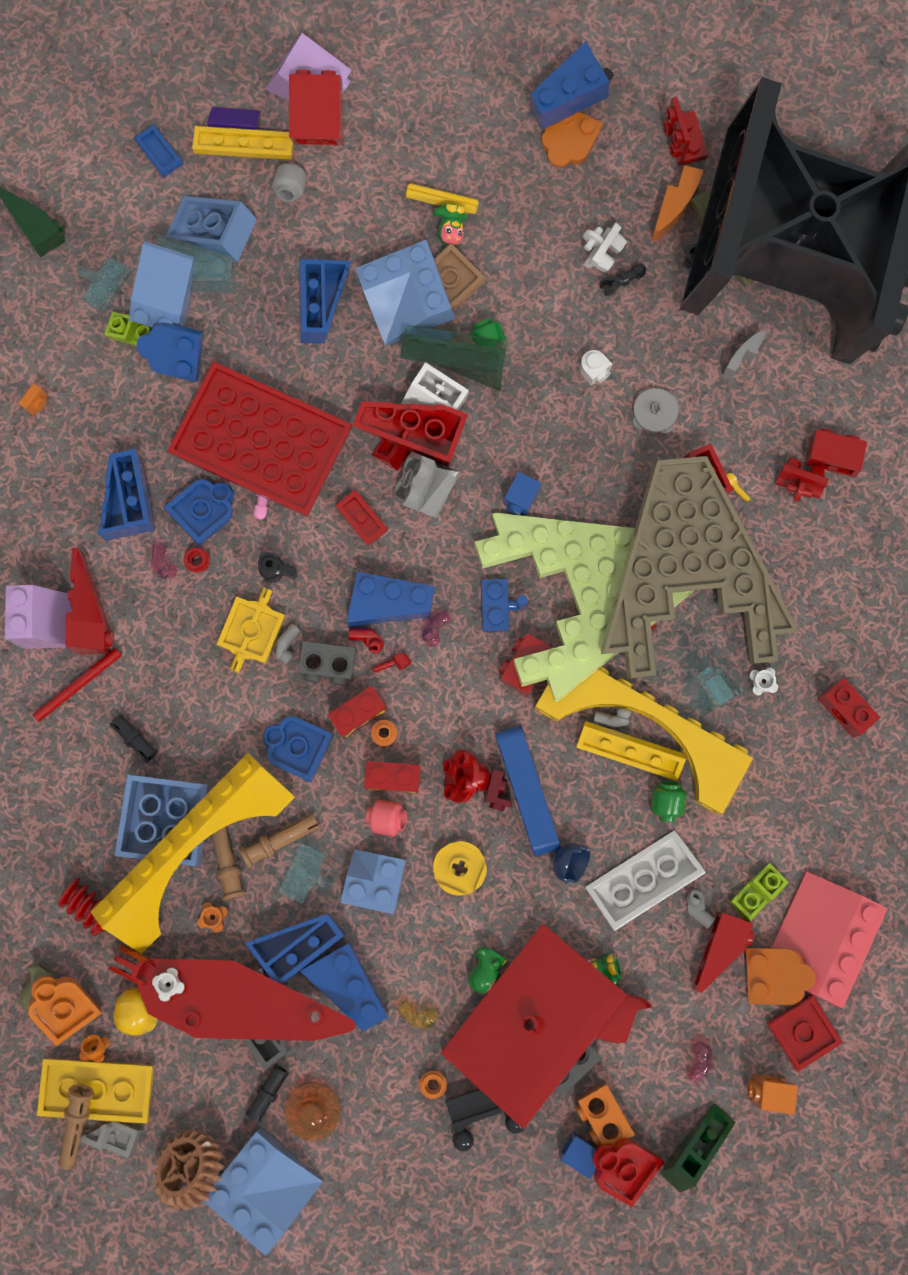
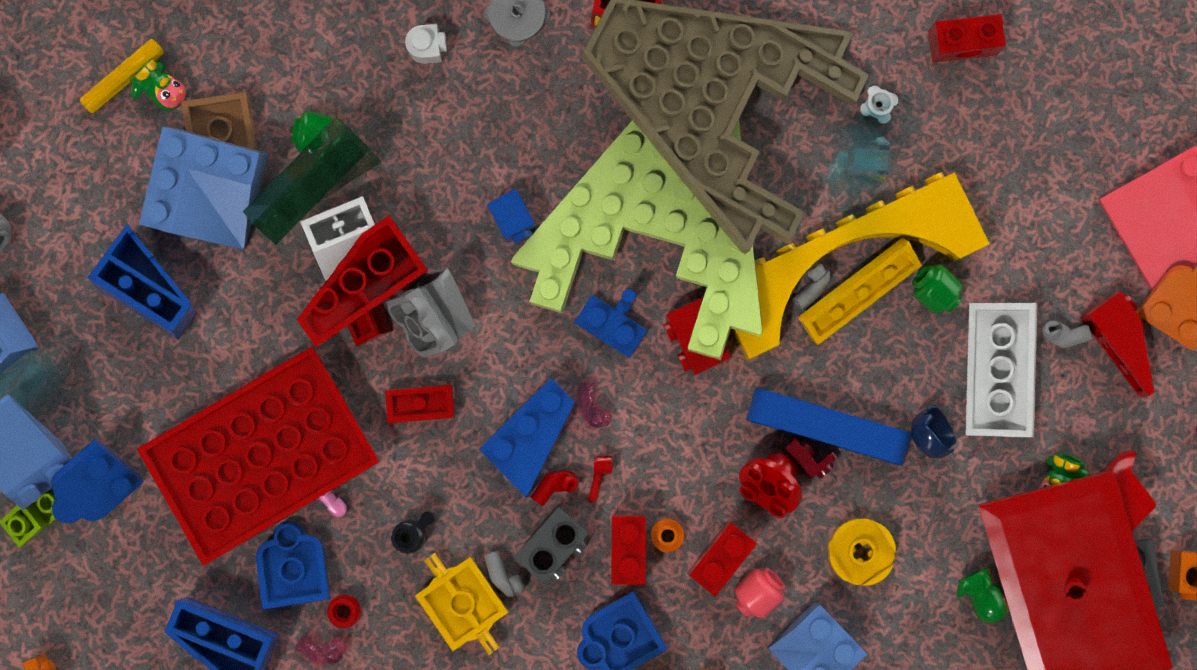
camera: 55 degrees left, 5 degrees up
(758, 892) = (1087, 262): lime slope -> none

